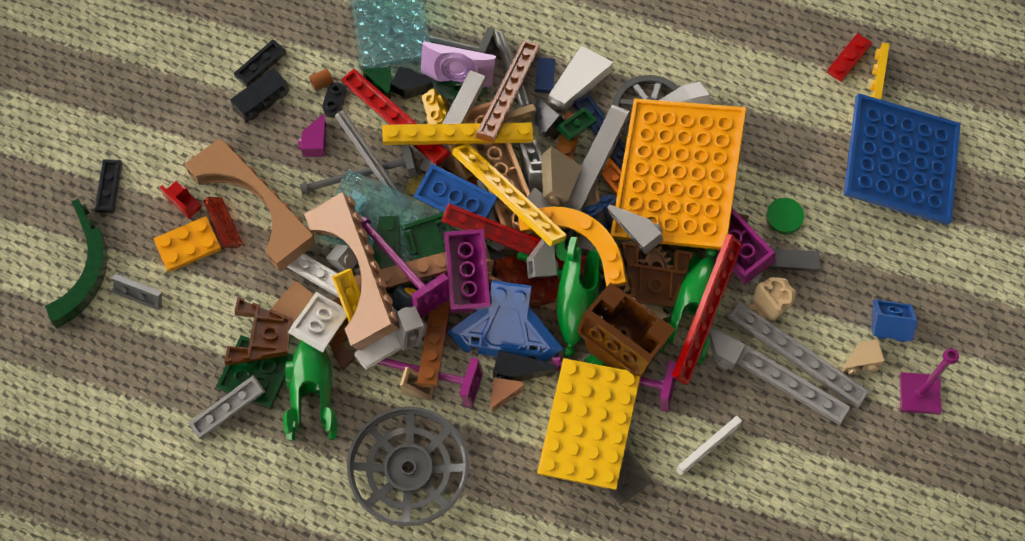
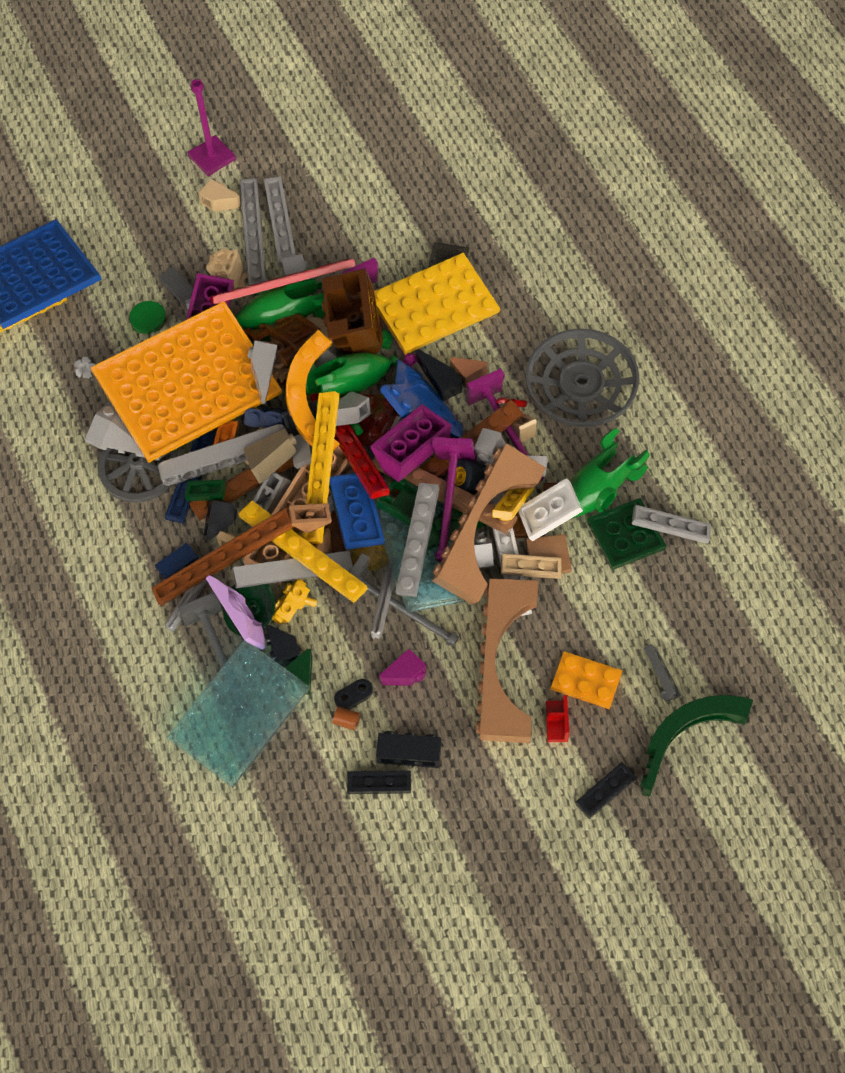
camera: 130 degrees left, 5 degrees down
(222, 222) = (543, 668): clear red plate -> none
(268, 334) = (592, 543): reddish brown wing -> none
(298, 280) = (531, 566): none -> tan tile
(388, 212) = (417, 540): none -> light grey plate
(389, 112) = (326, 637): red tile -> none
(443, 385) = (520, 403): none -> red piece
(473, 149) = (309, 516): none -> medium nougat slope
(579, 77) = (159, 532): white slope -> none
(708, 446) = (375, 232): white tile -> none
(775, 137) = (84, 367): none -> light grey plant
(893, 320) = (170, 200): blue slope -> none

